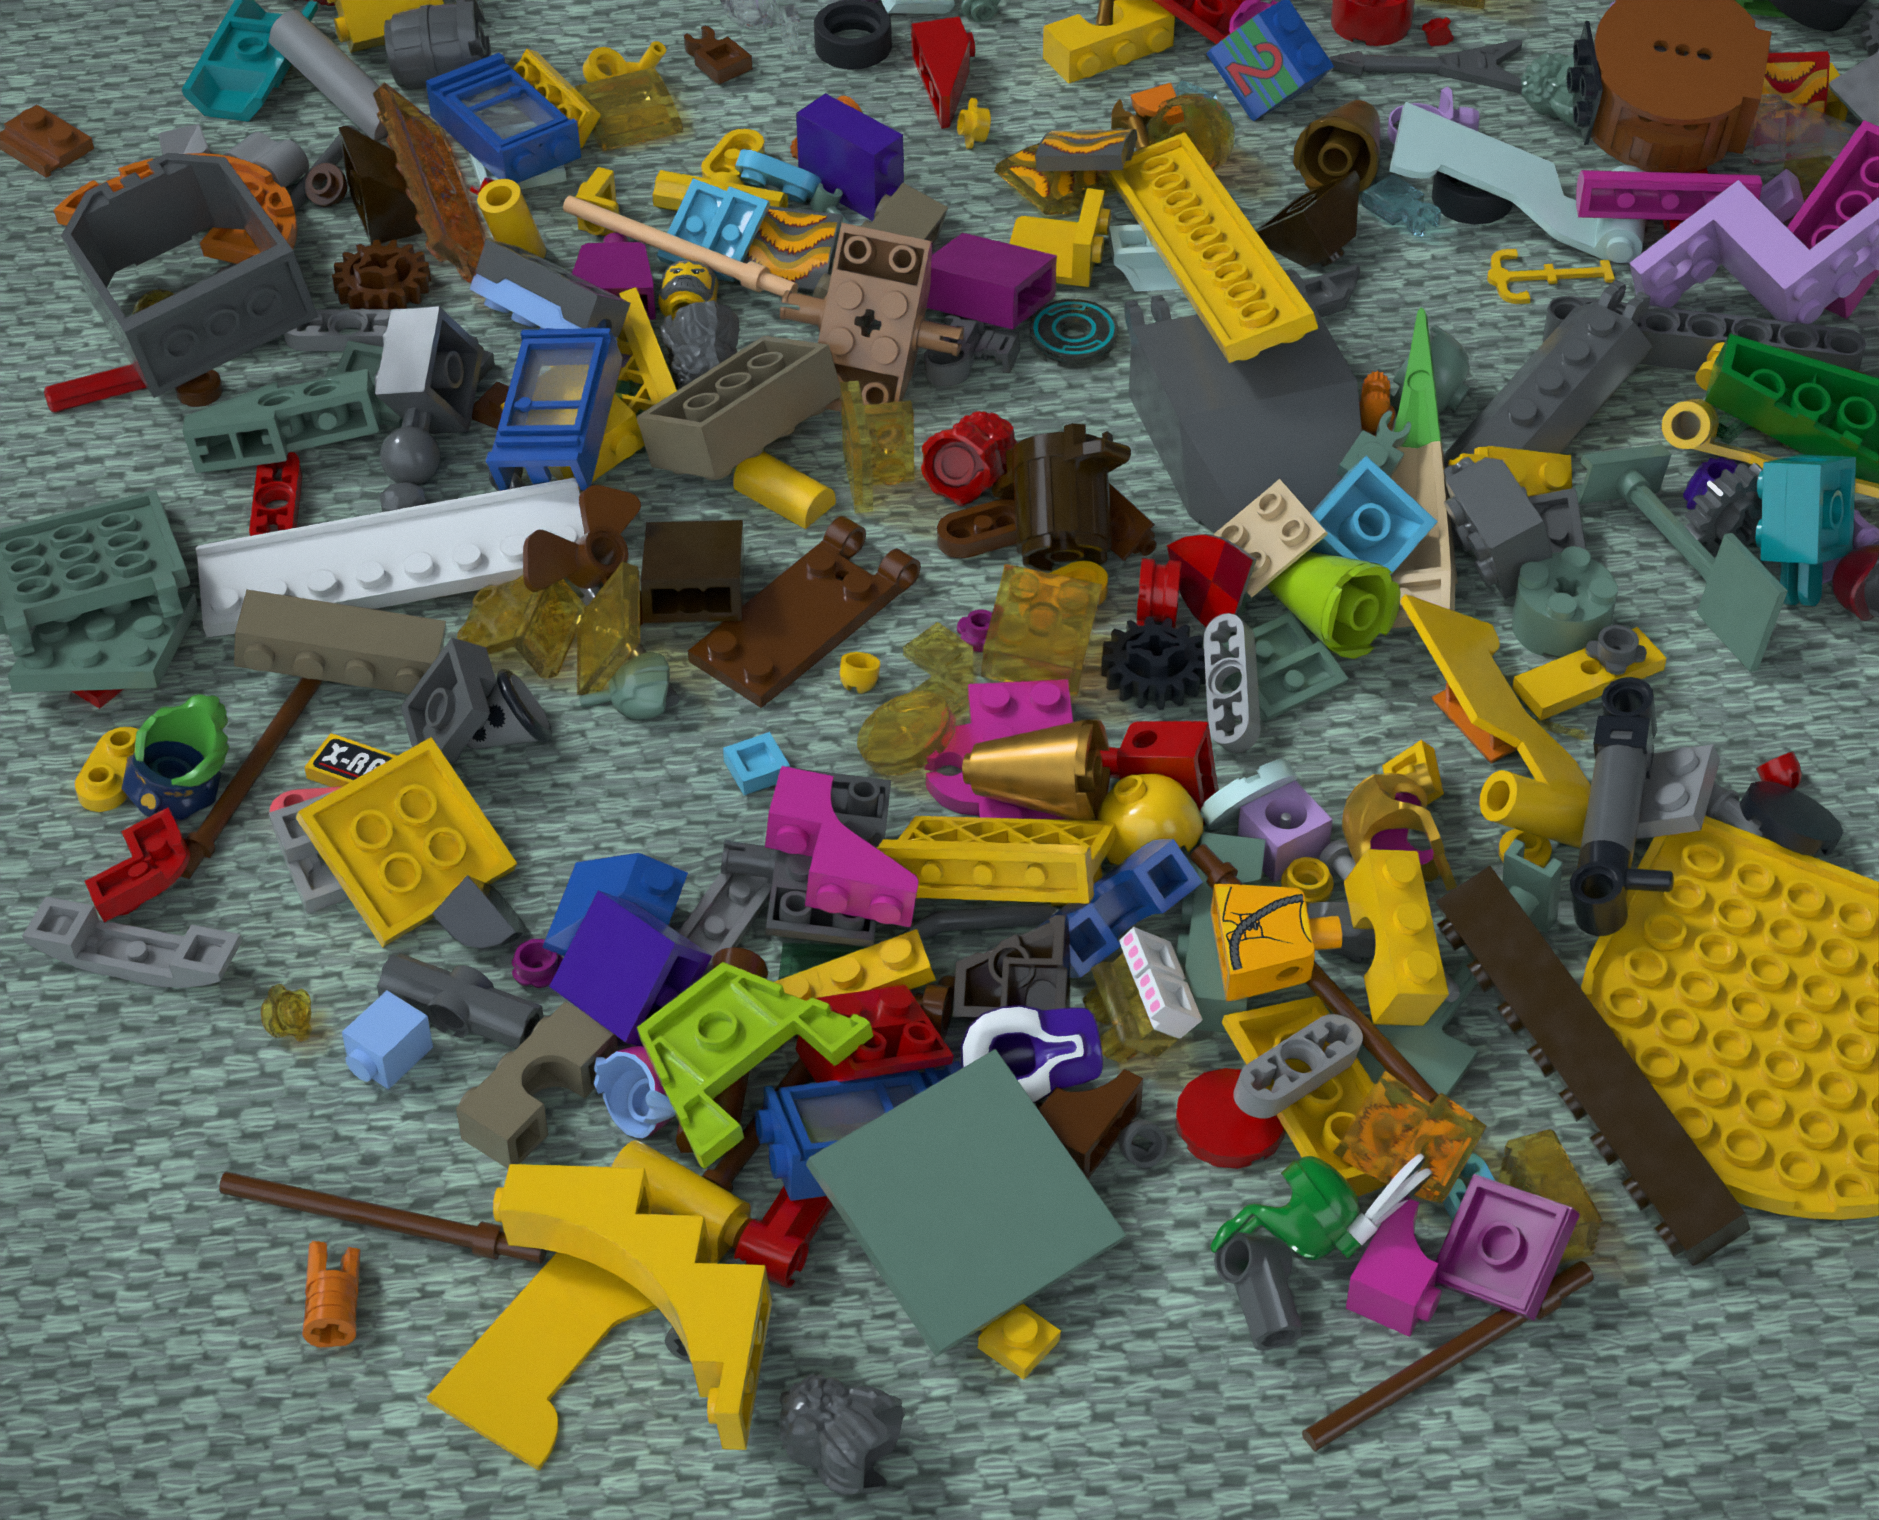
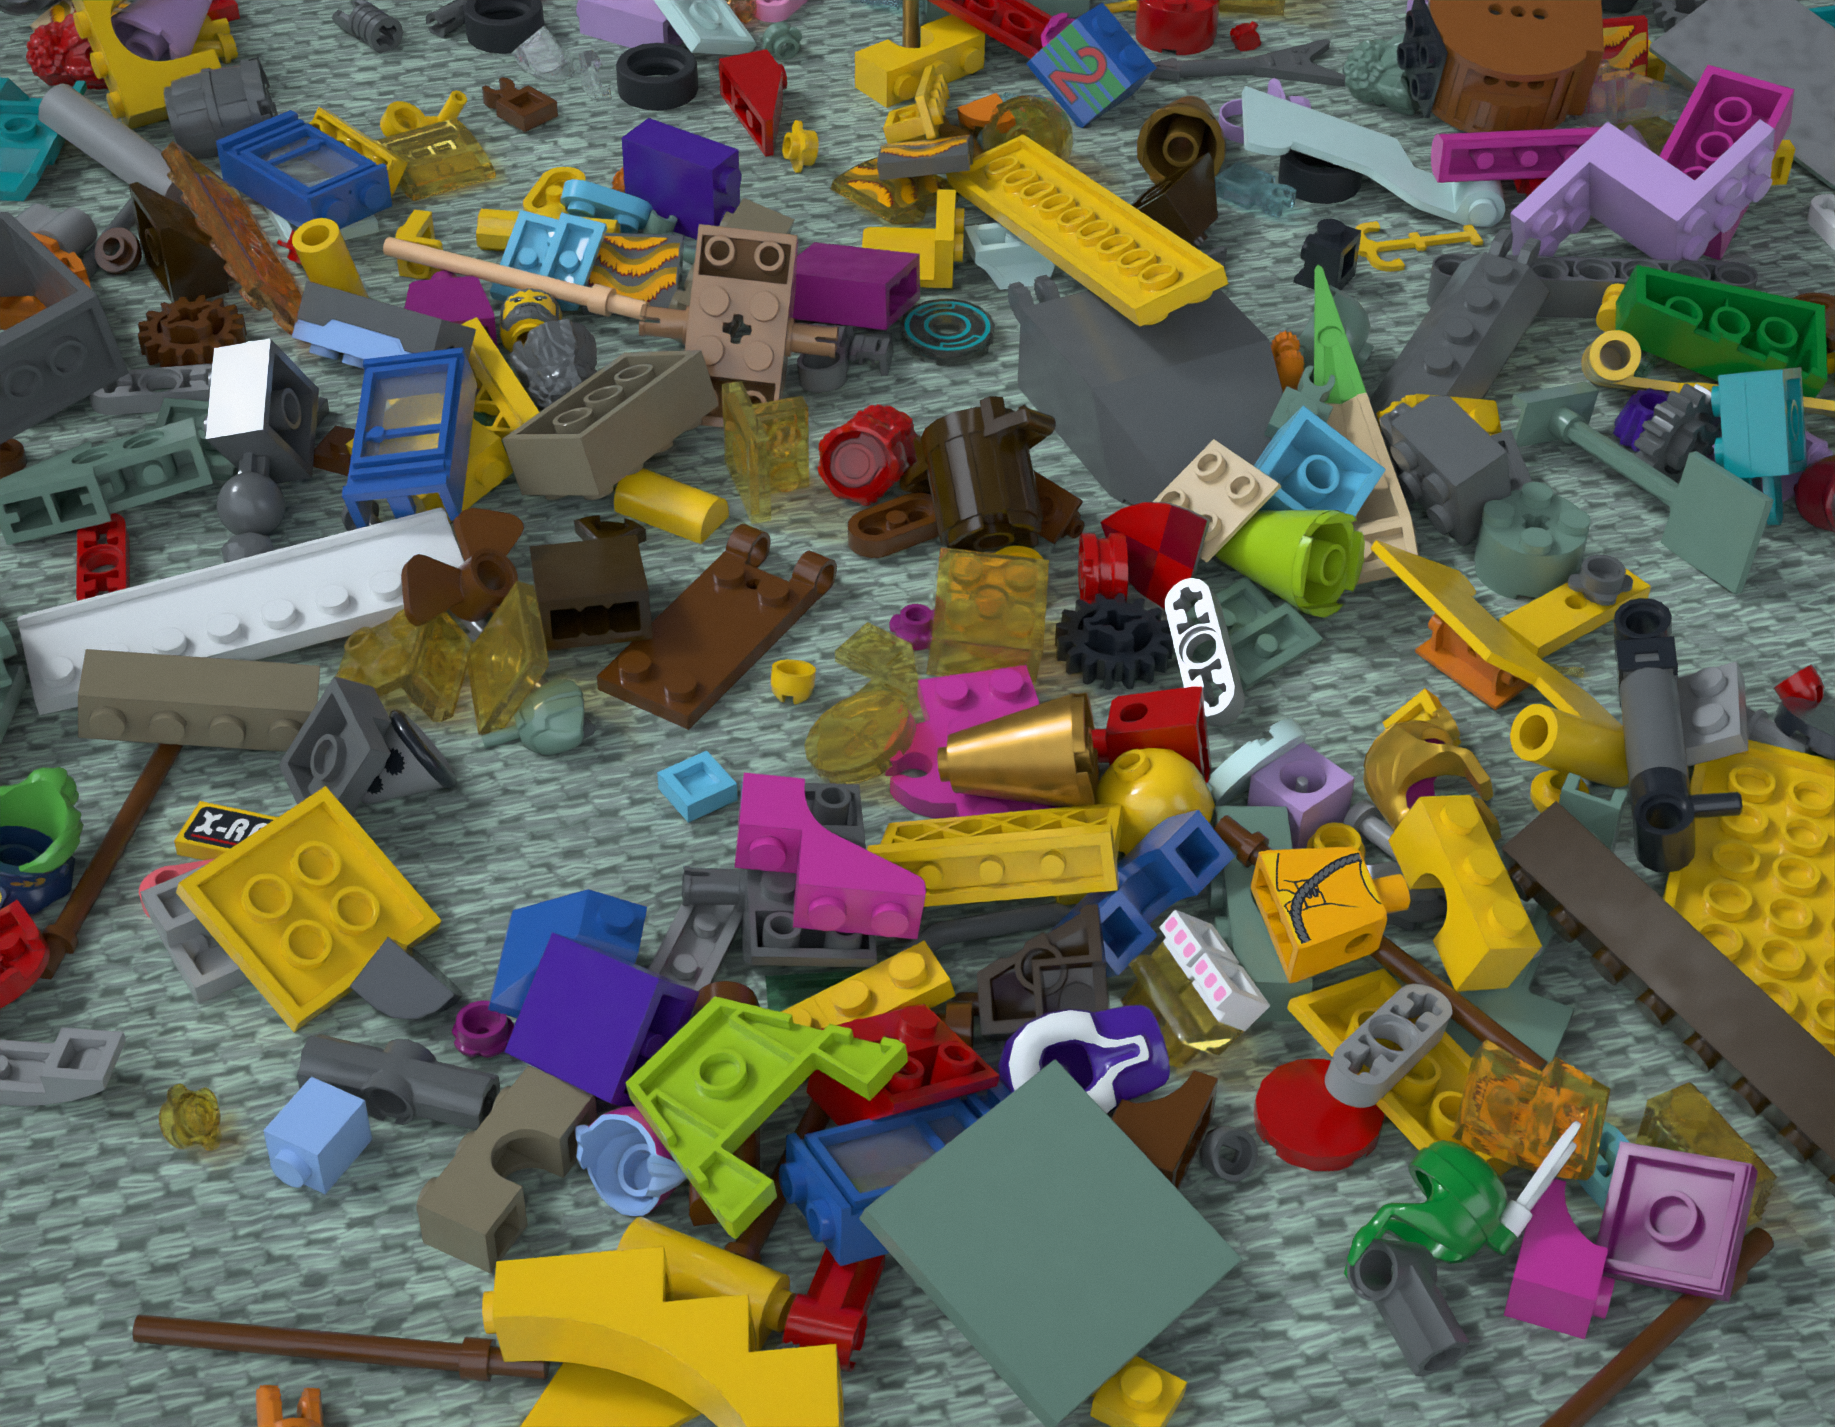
camera: 10 degrees left, 5 degrees down
(714, 508) = (592, 528): none -> dark brown tile
(1091, 105) = (924, 116): none -> yellow bracket
(1454, 287) = (1334, 249): none -> black brick

